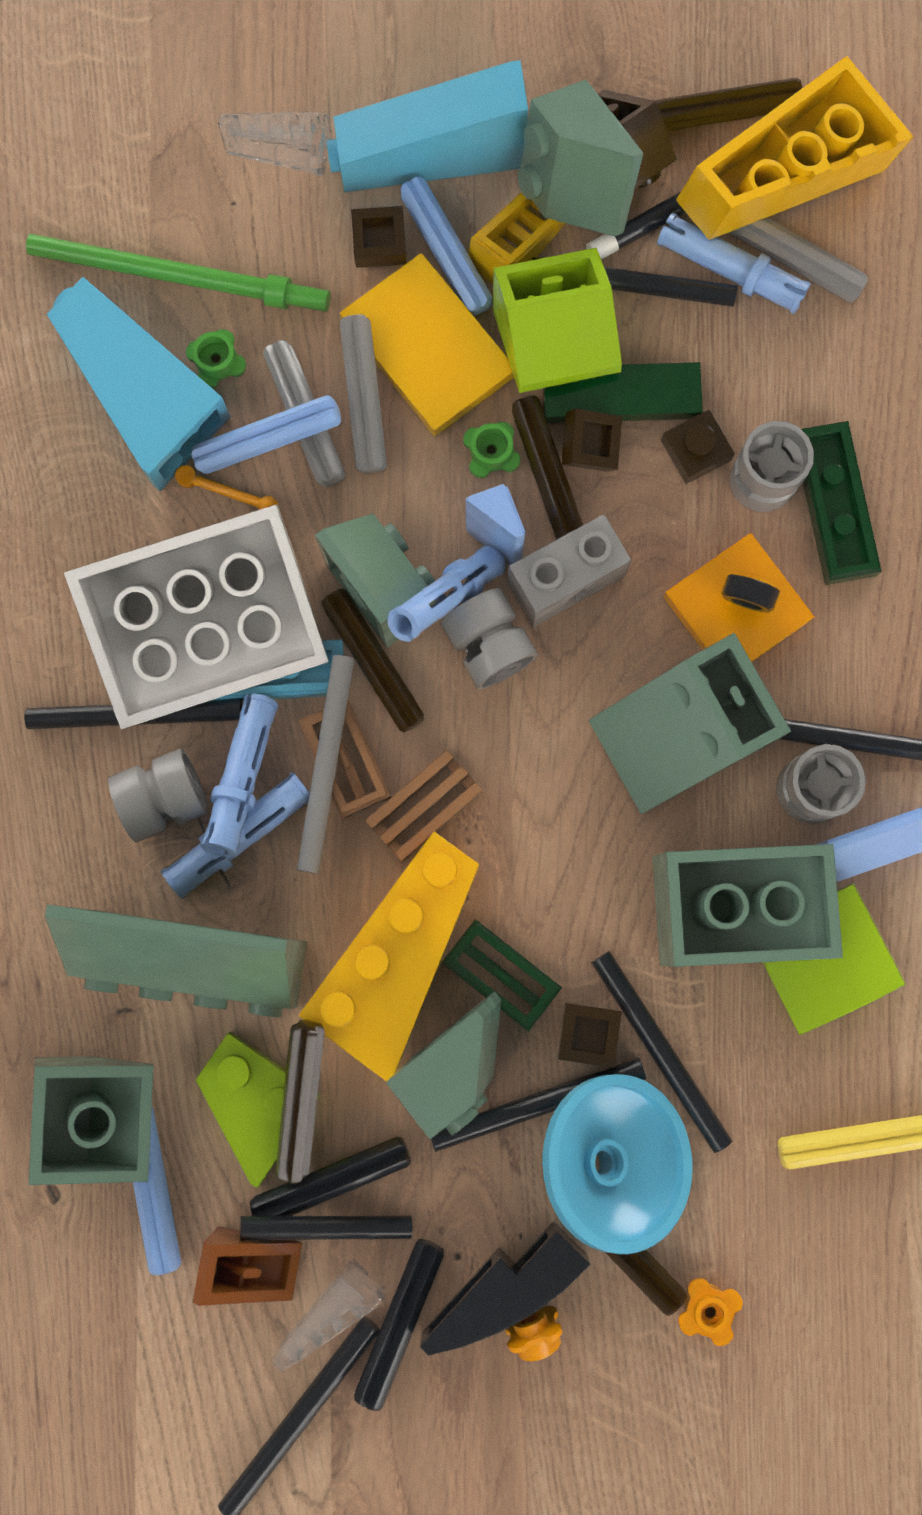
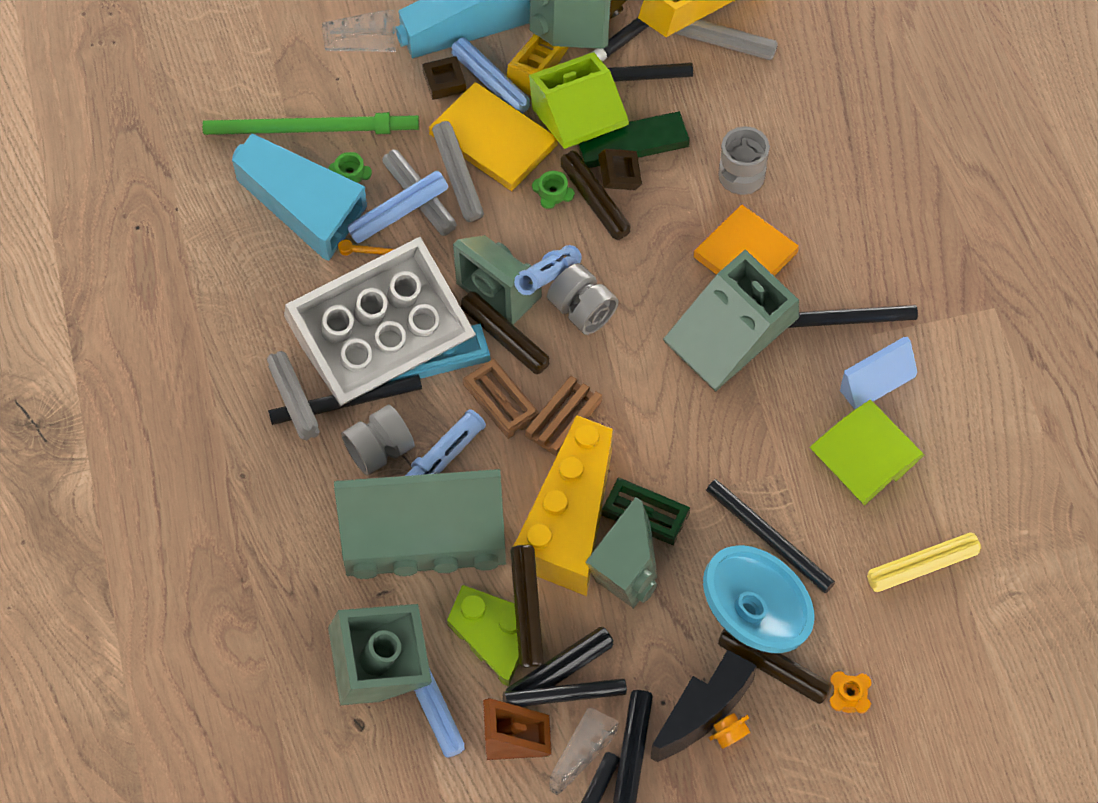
camera: 15 degrees left, 20 degrees down
(59, 701) = (293, 395): none -> light grey axle
(234, 794) = (431, 426): light blue pin -> none
(325, 764) = (489, 398): light grey piece -> none
(495, 522) = (570, 224): light blue slope -> none
(525, 1108) = (666, 603): black piece -> none
(568, 570) = (625, 248): light grey brick -> none
(589, 1035) = (716, 531): dark brown plate -> none
(697, 446) = (692, 162): dark brown plate -> none
(734, 264) = (687, 50): light blue pin -> none
(747, 905) = (799, 422): sand green slope -> none
(750, 593) = (751, 235): black tile -> none
(821, 784) = (830, 341): light grey wheel -> none
(839, 507) = (797, 180): dark green tile -> none

